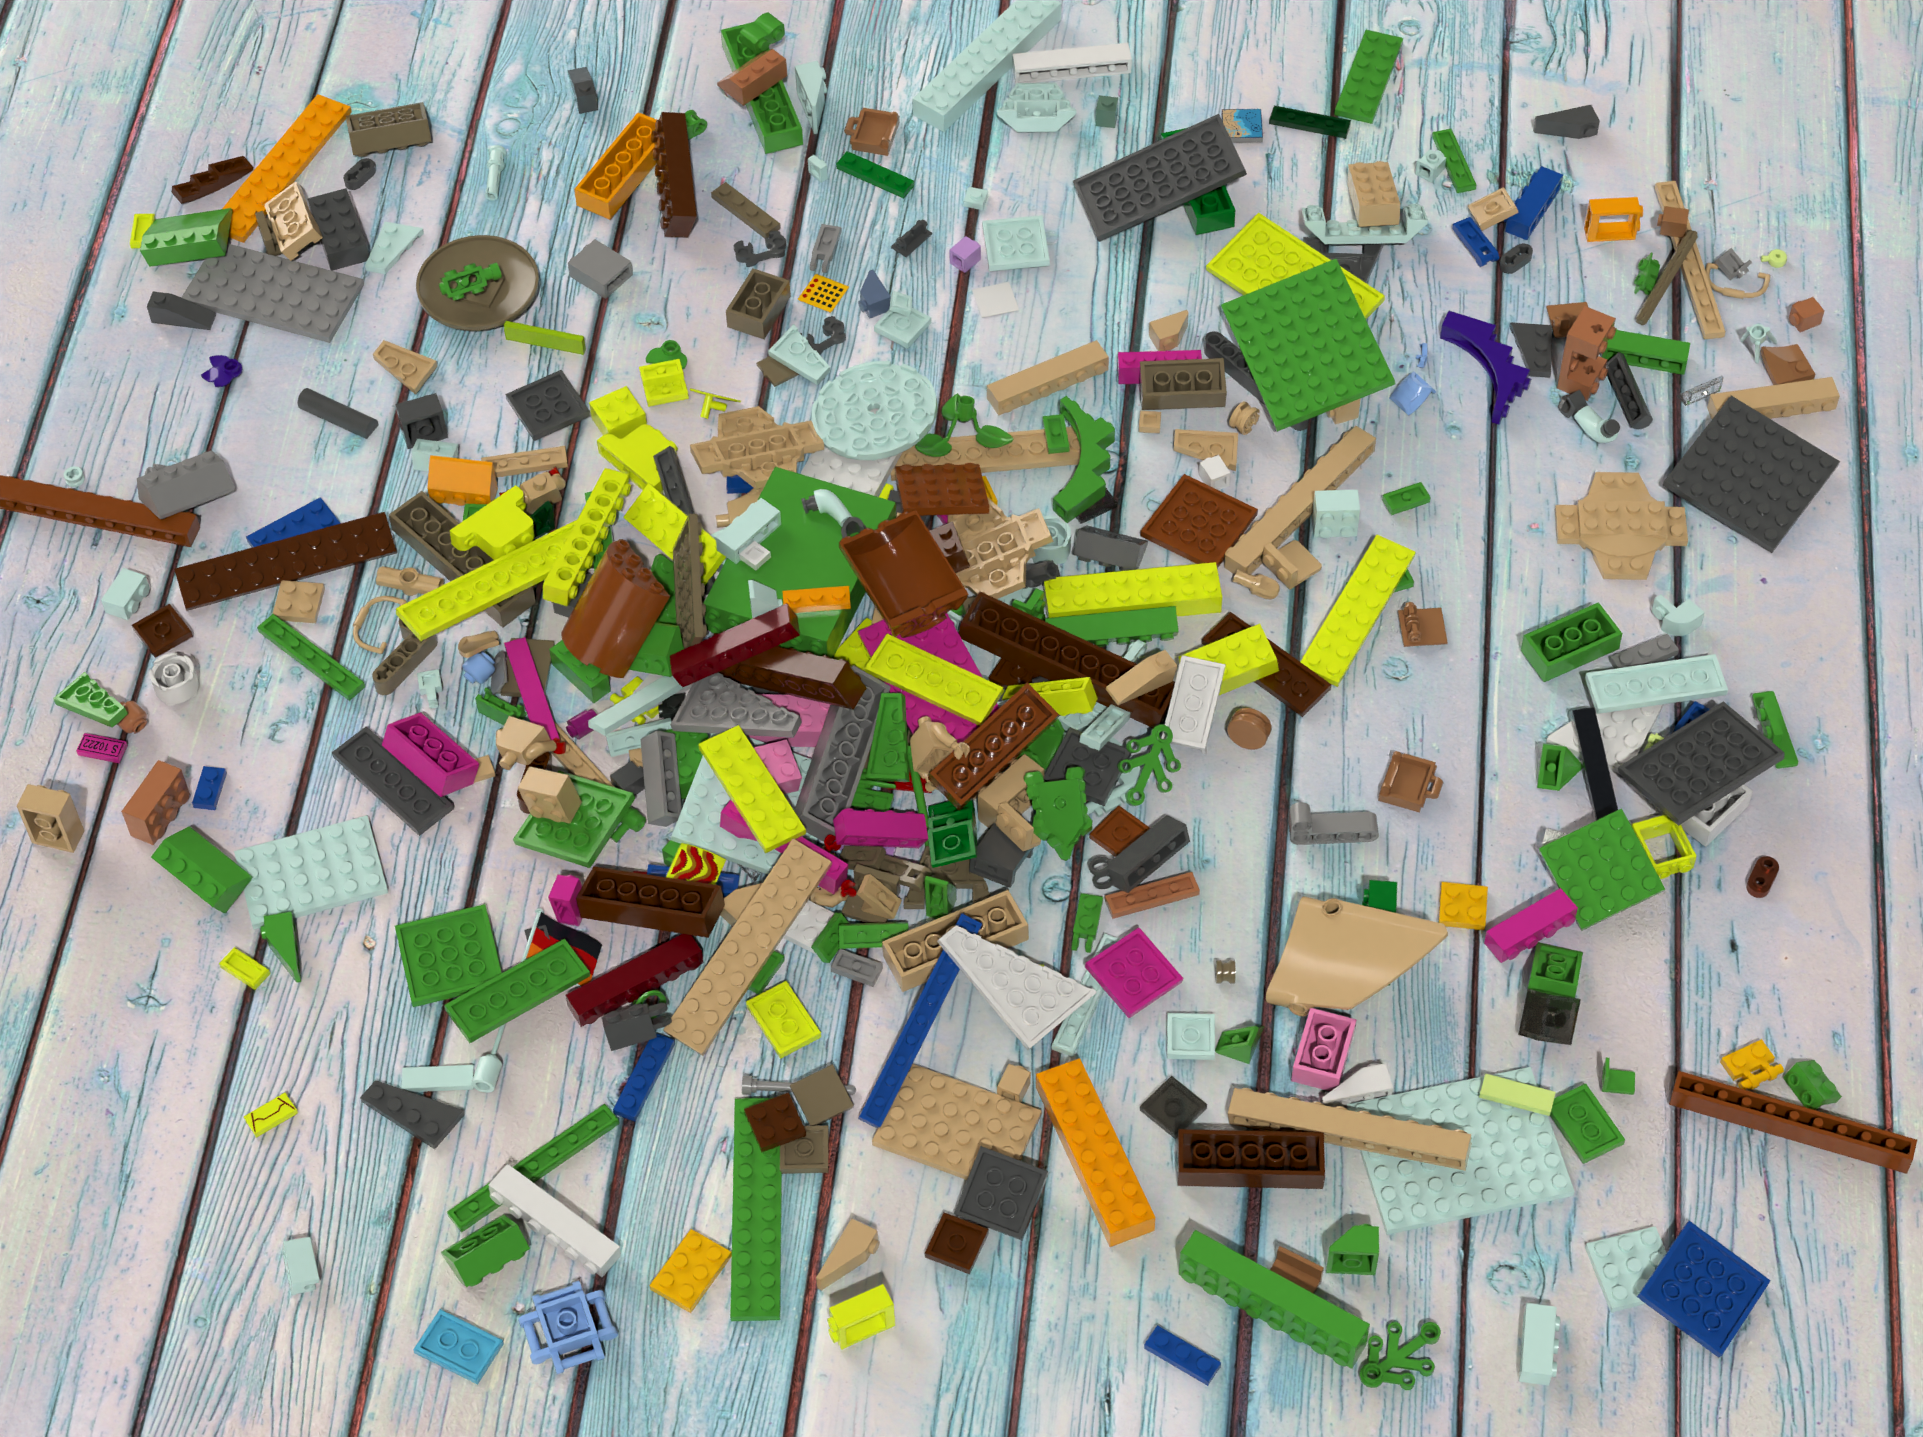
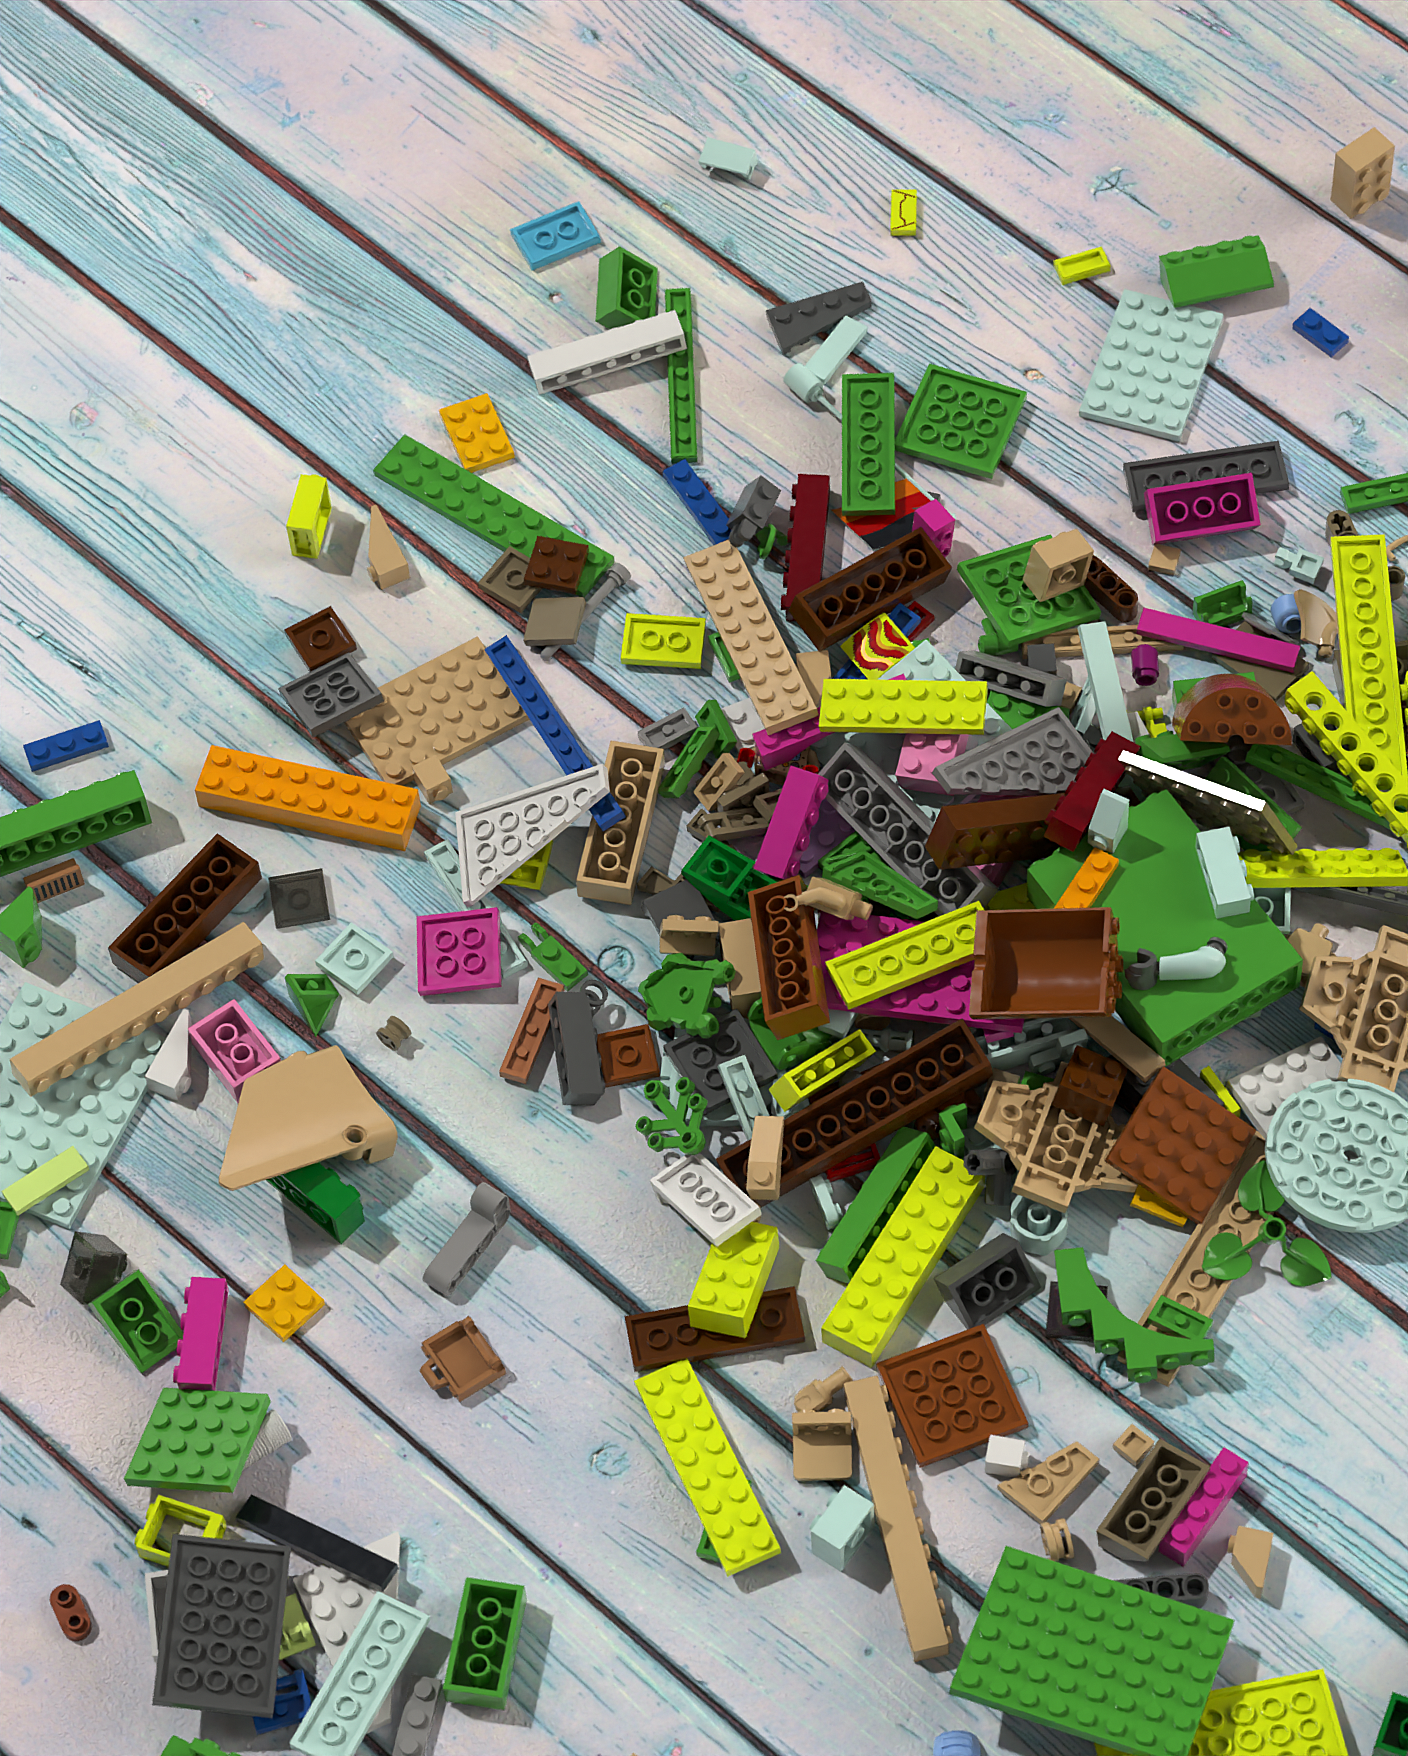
camera: 130 degrees right, 5 degrees up
(156, 802) = (1323, 269): nougat brick -> none
(282, 940) = (1080, 301): bright green slope -> none
(523, 742) = (1150, 585): tan torso -> none
(567, 1326) = (499, 313): light blue brick -> none
(755, 555) = (1186, 861): white plate -> none
(939, 897) = (675, 830): bright green slope -> none
(1047, 377) = (1279, 1381): tan brick -> none
(1249, 728) = (641, 1242): medium nougat head -> none
(1406, 498) = (815, 1634): bright green plate -> none
(1422, 626) = (636, 1521): medium nougat hinge -> none
(1556, 767) = (356, 1510): bright green slope -> none

